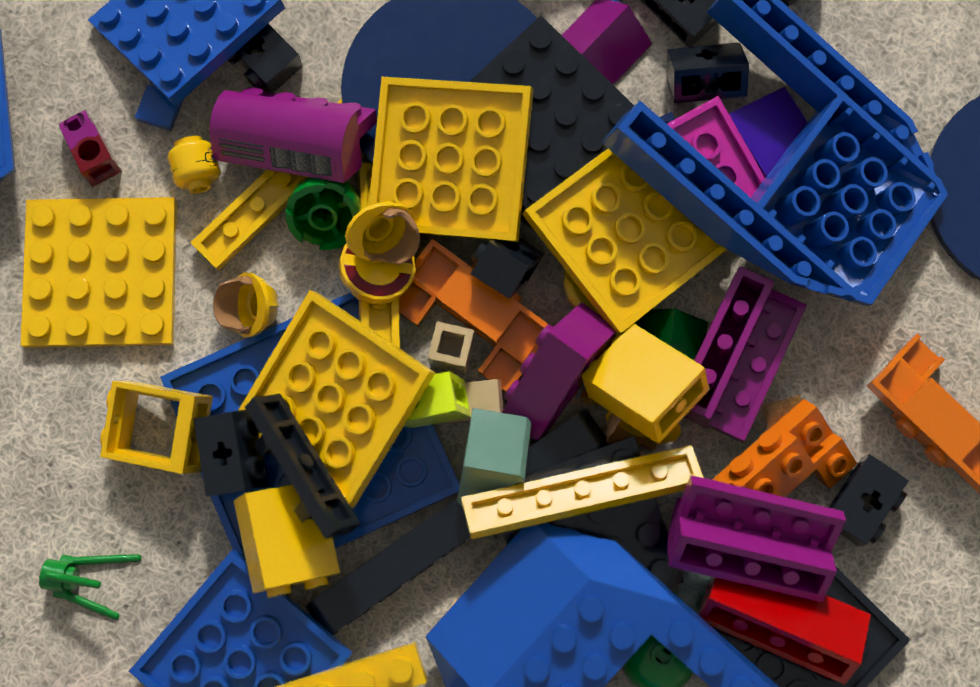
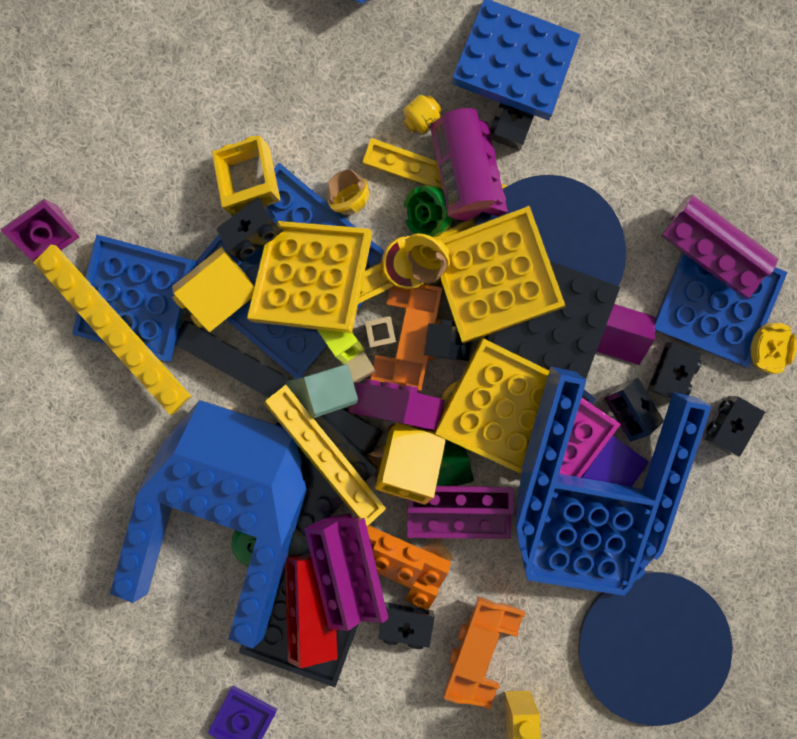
camera: 60 degrees right, 10 degrees up
(62, 576) = (132, 167): green plant -> none
(89, 148) = (401, 42): dark red leg -> none
(99, 272) = (327, 90): yellow plate -> none
(157, 109) = (445, 71): blue tile -> none
(302, 466) = (258, 278): black hinge -> none

